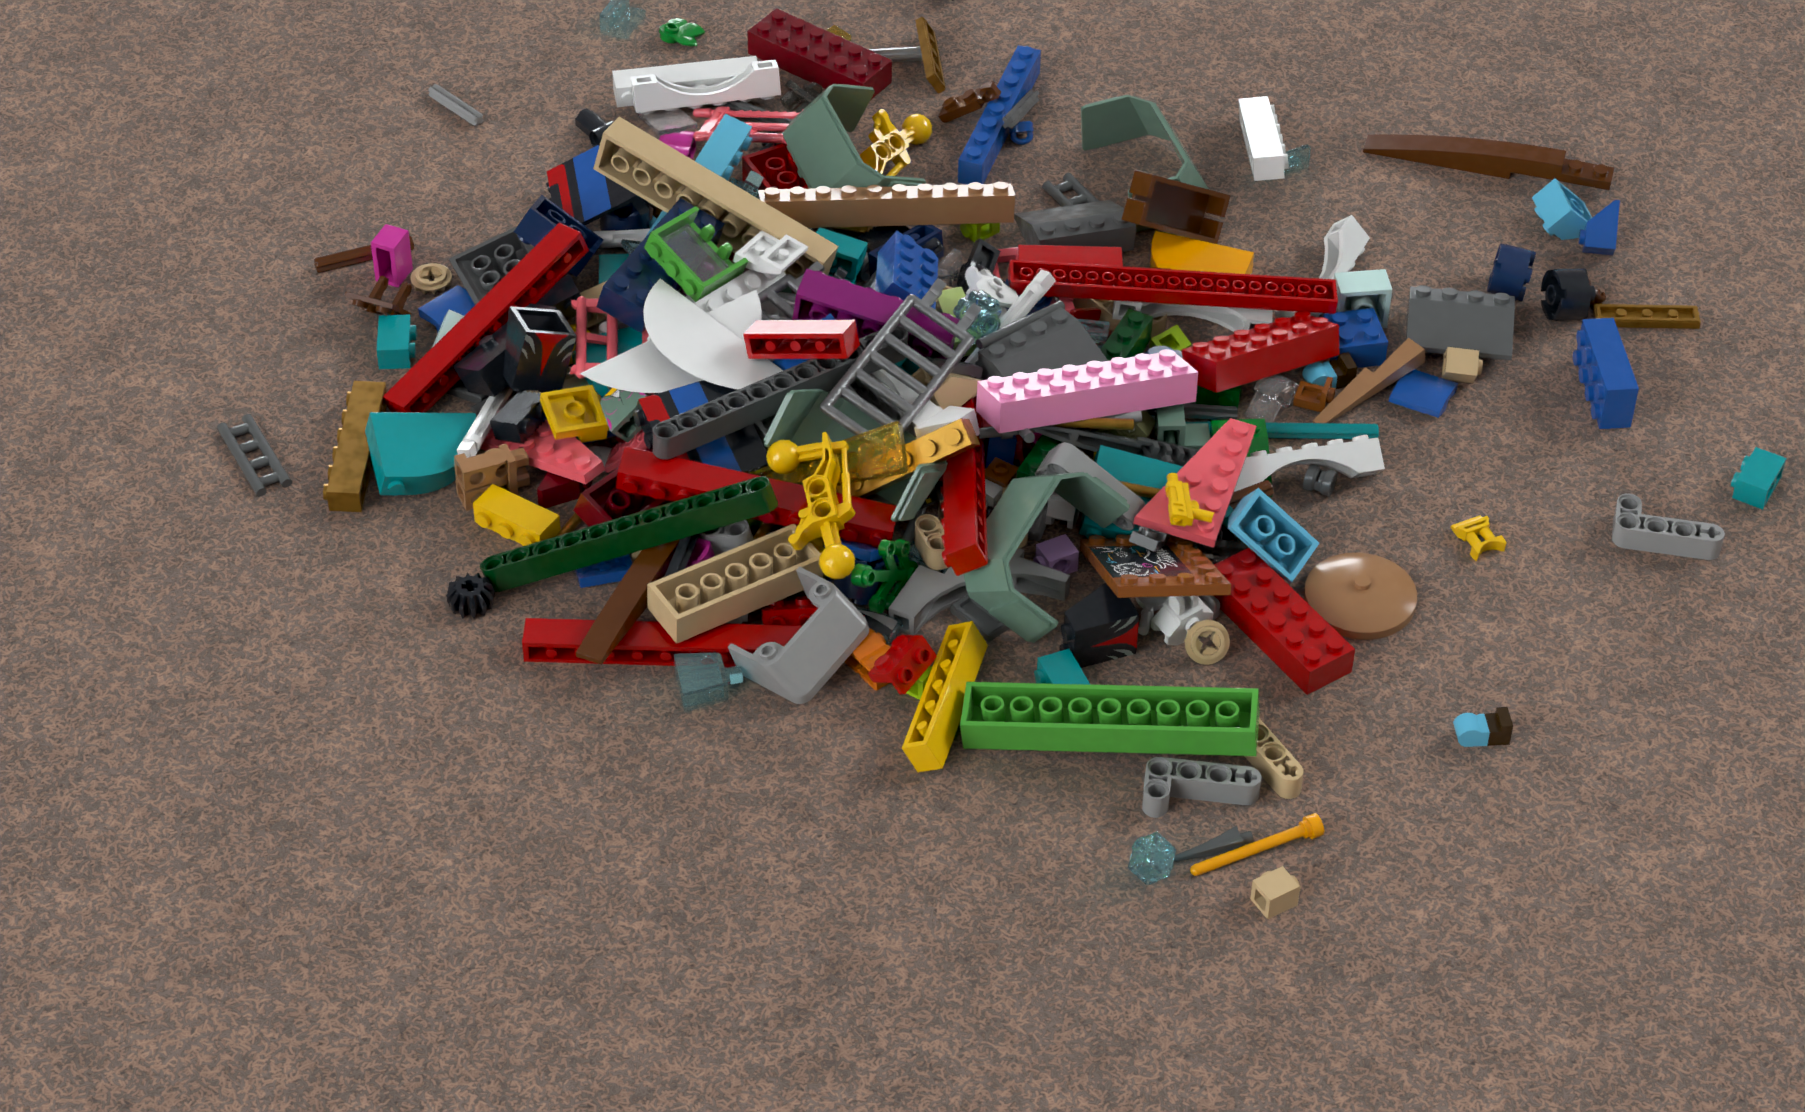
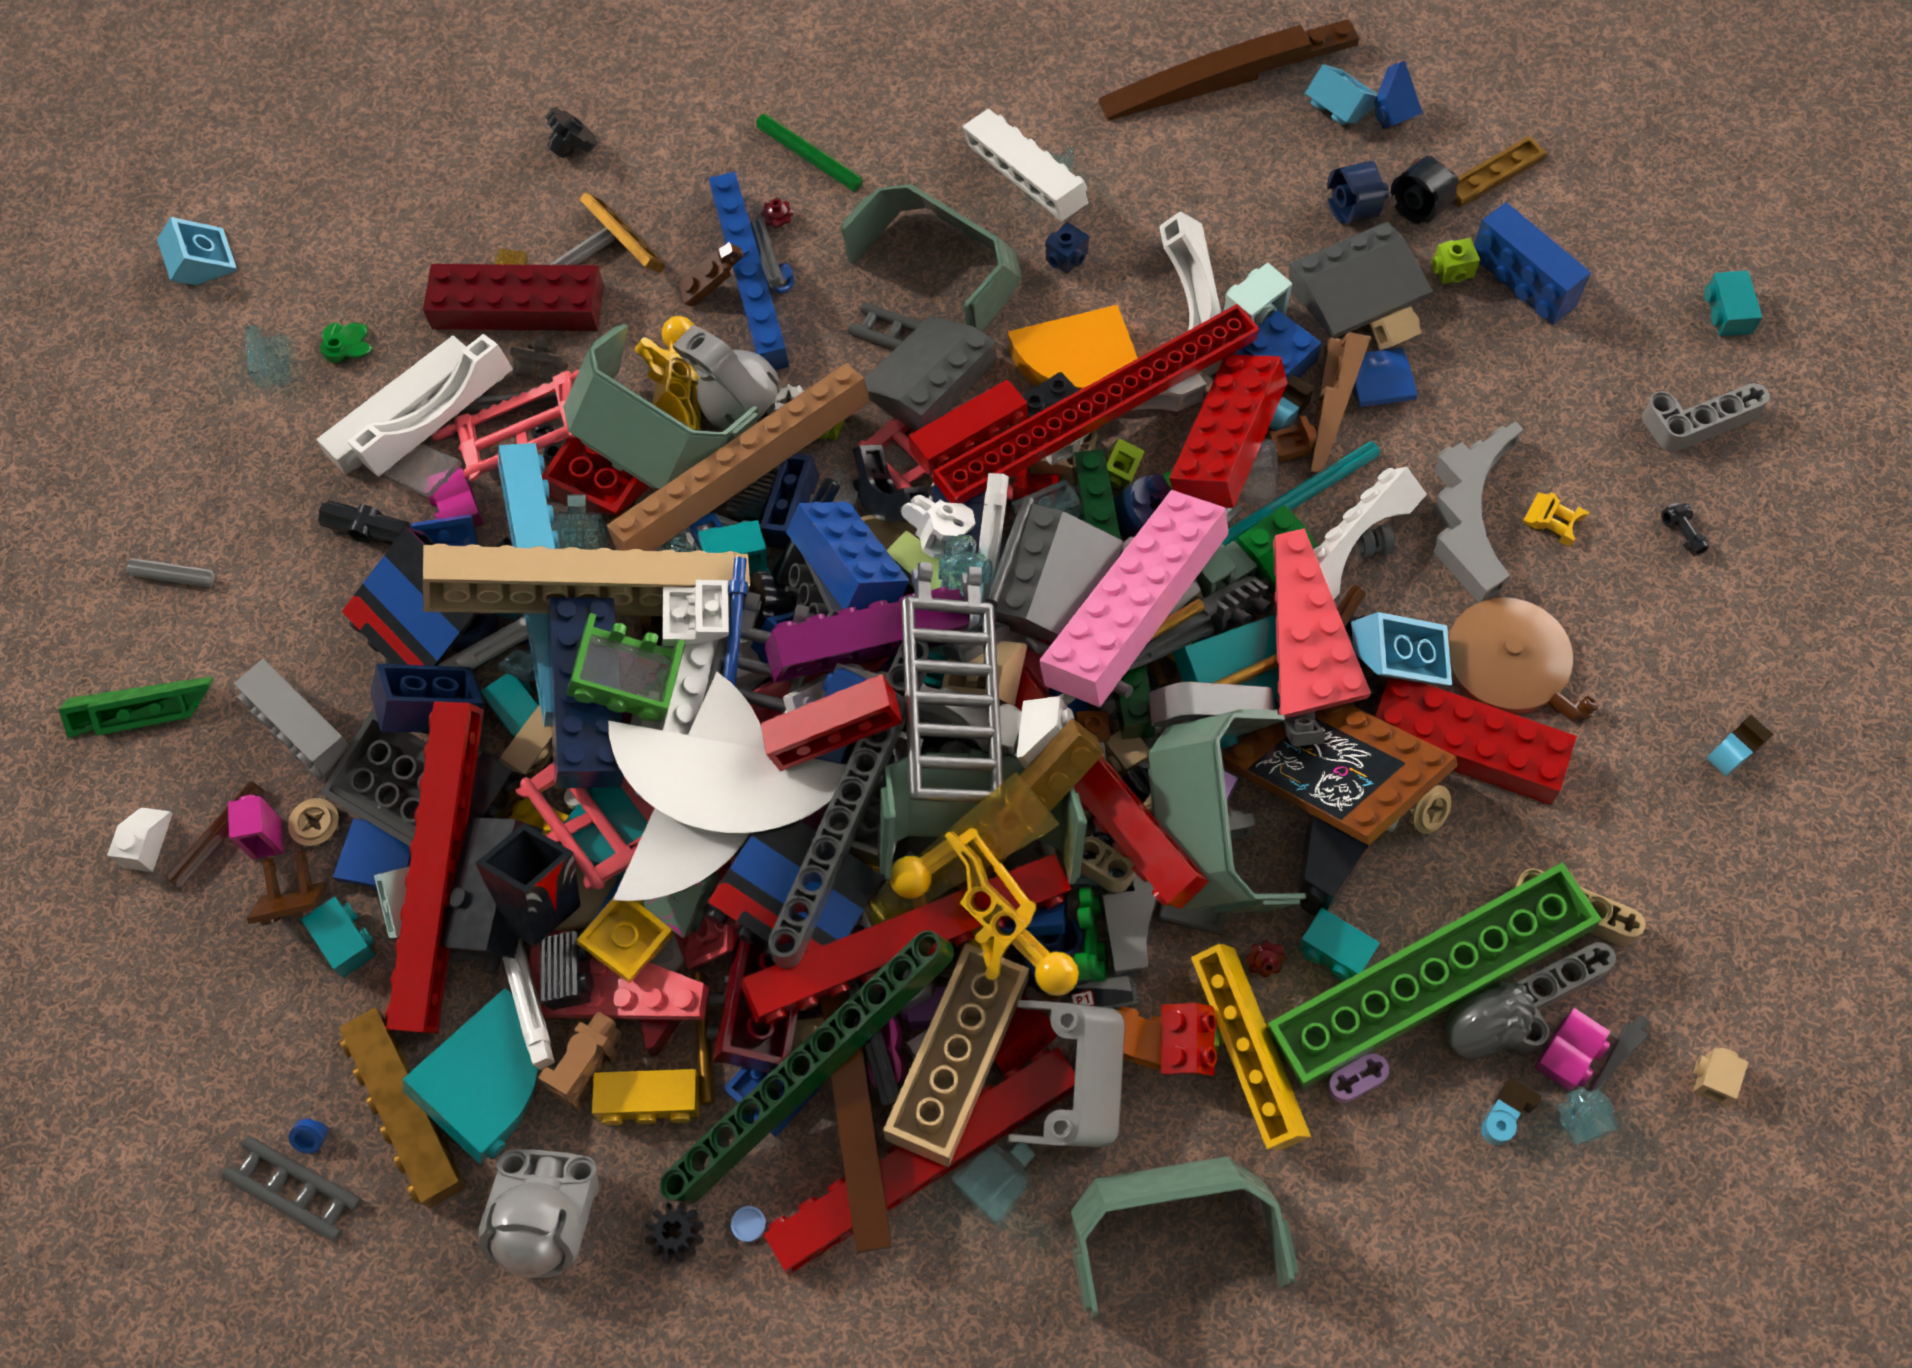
camera: 30 degrees left, 20 degrees up
(287, 430) = (308, 1135): none -> blue tile
(313, 232) = (140, 839): none -> white slope
(370, 163) = (133, 707): none -> green wedge
(392, 533) = (538, 1212): none -> light grey piece
(463, 207) = (291, 719): none -> light grey brick
(517, 620) = (748, 1224): none -> light blue piece
(751, 712) = (1172, 1184): none -> sand green piece
(810, 256) = (737, 591): none -> blue bar
(922, 154) = (728, 378): none -> light grey piece
(1005, 663) = (1266, 958): none -> dark red plant
(1009, 761) = (1362, 1085): none -> lavender beam
(1054, 93) = (777, 212): none -> dark red plant
(1097, 830) = (1501, 1119): none -> leg
(1109, 64) = (809, 152): none -> green axle
(1123, 763) = (1490, 1021): none -> dark grey piece
(1175, 207) = (1015, 305): reddish brown piece -> none
(1180, 506) = (1324, 681): yellow piece -> none
(1181, 820) = (1572, 1050): none -> dark pink brick
(1250, 206) = (1067, 248): none -> dark blue brick
(1310, 826) = (1683, 973): light orange piece -> none
(1376, 648) = (1576, 709): none -> reddish brown arm
(1409, 491) = (1464, 543): none -> light grey arch
(1550, 348) = (1455, 261): none -> lime brick
(1578, 581) = (1680, 516): none -> black bar

